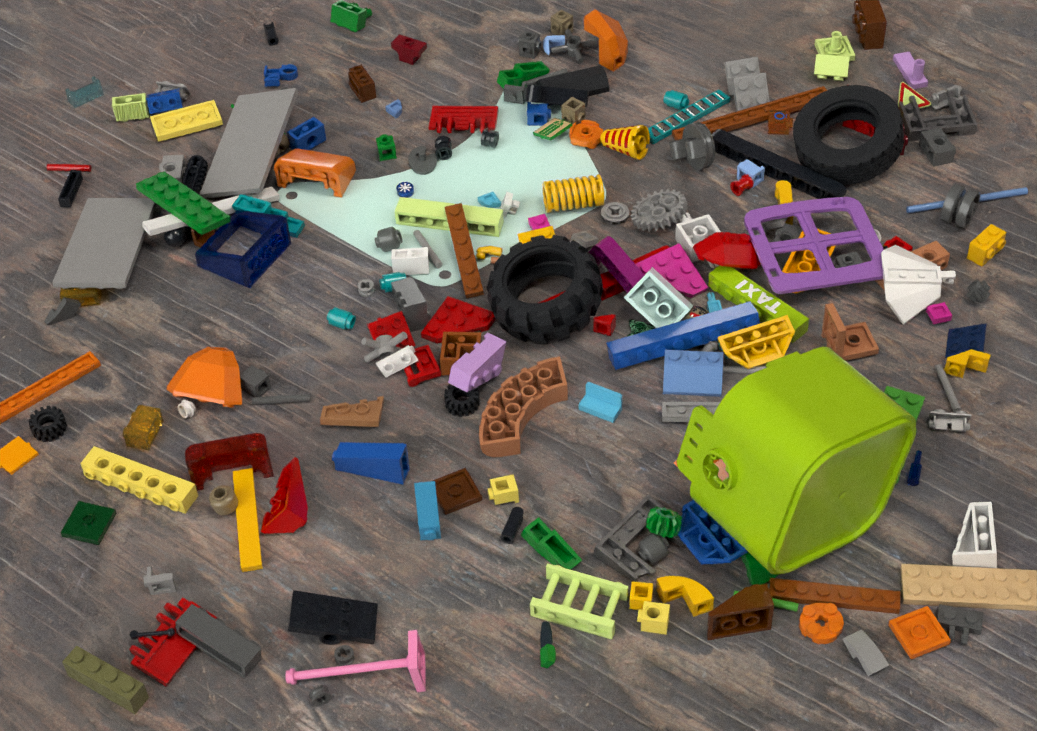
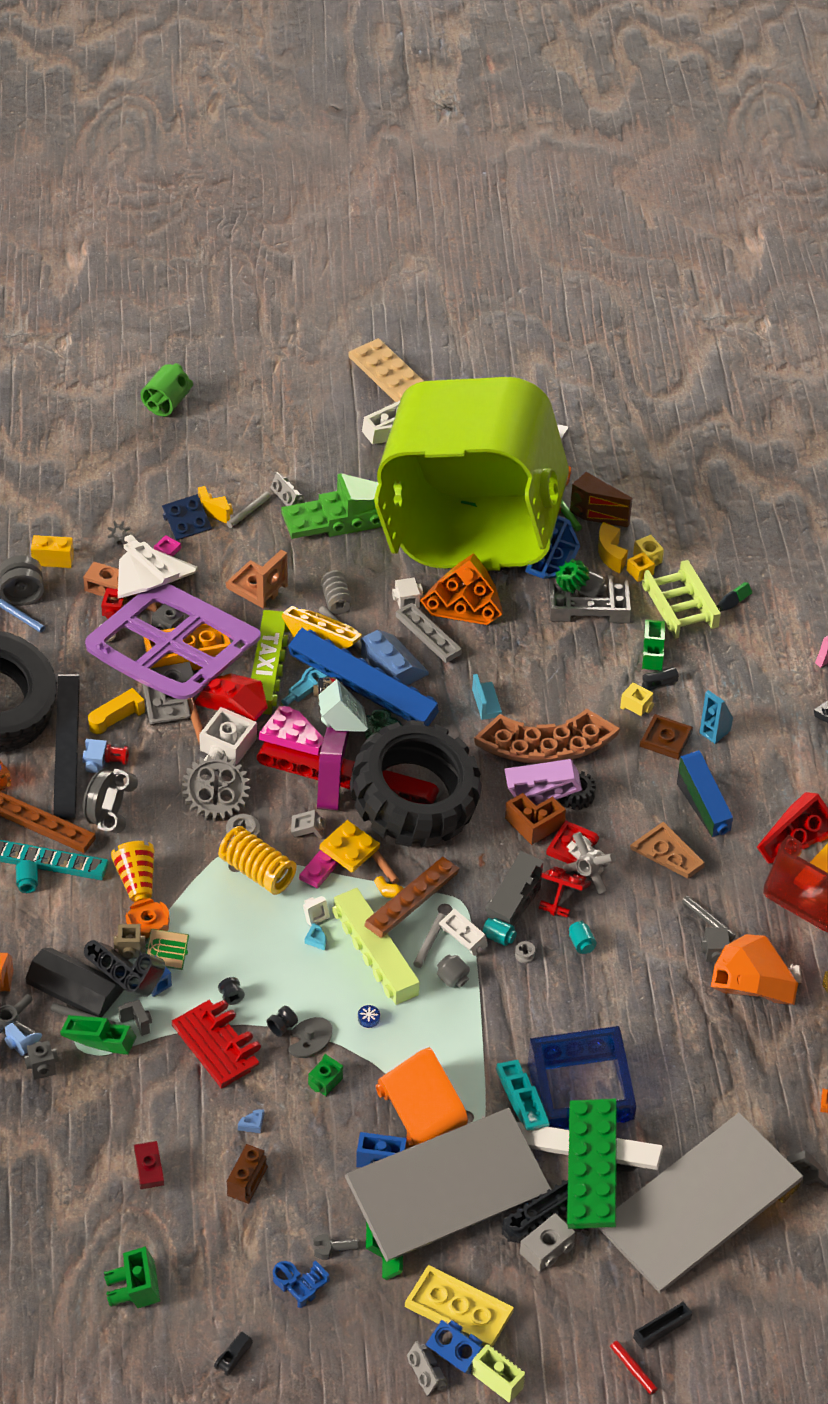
camera: 135 degrees left, 0 degrees up
(457, 317) = (487, 855): red plate -> none

